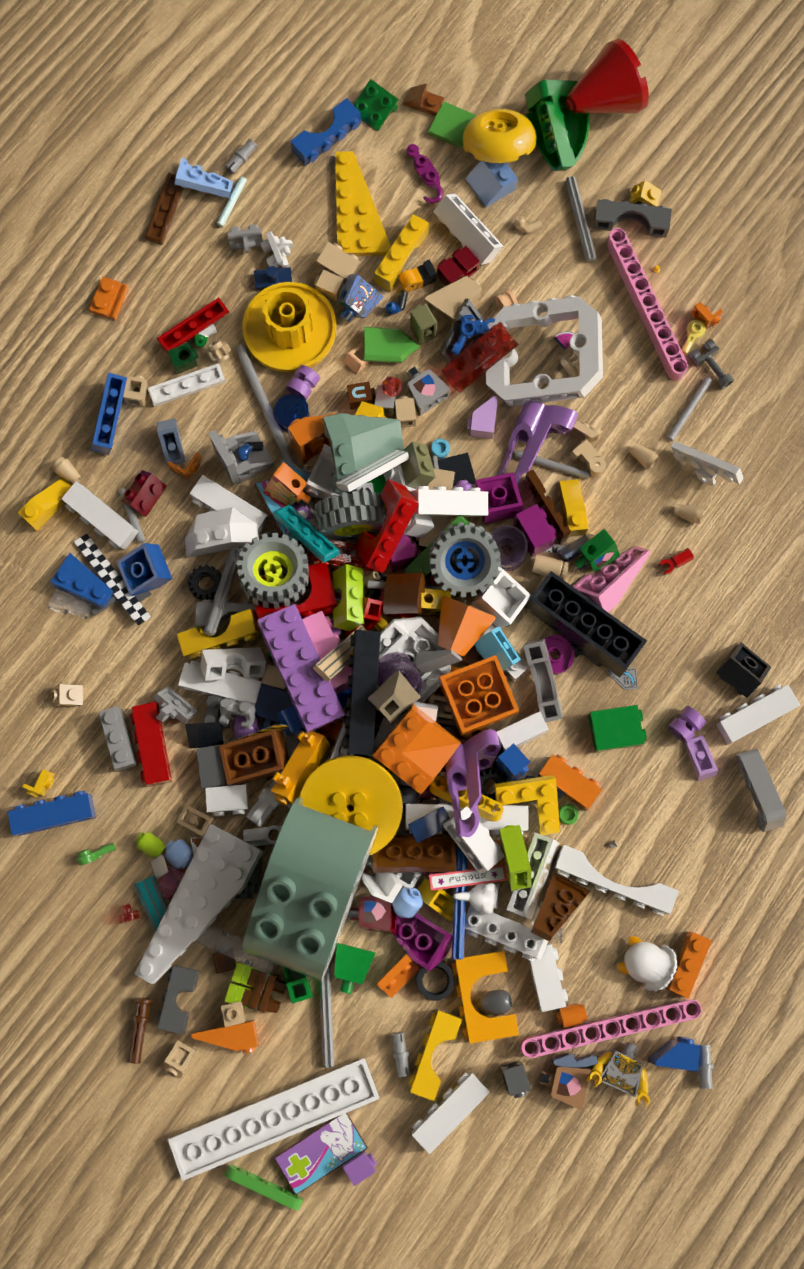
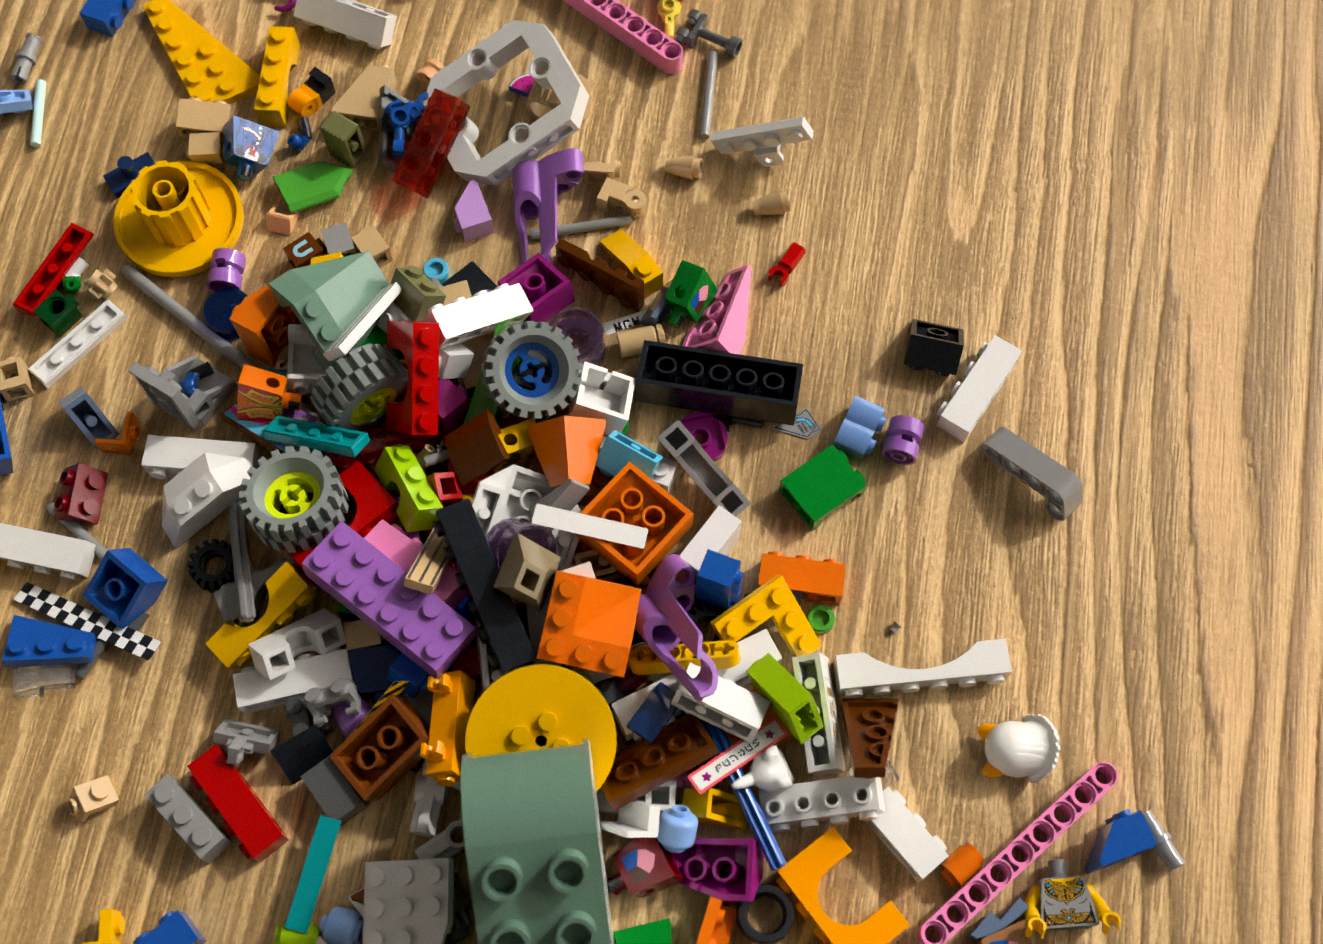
camera: 25 degrees left, 10 degrees down
(176, 813) = (313, 874): none -> teal sticker
(194, 820) = (345, 872): tan slope -> none
(227, 799) = (374, 823): white brick -> none
(245, 238) = (74, 144): light grey hips -> none
(278, 247) = (111, 136): white hips -> none
(391, 386) = (339, 221): clear red tile -> none
(426, 389) = (386, 210): light grey torso -> none
(449, 686) = (590, 526): none -> white sticker
(461, 264) = (353, 60): dark red piece -> none
(495, 1002) = (857, 901): dark grey animal -> none
(536, 529) = (602, 299): magenta brick -> none
(662, 701) = (859, 428): none -> medium blue brick
(689, 964) = (1068, 716): orange brick -> none
(701, 758) = (942, 473): lavender slope -> none

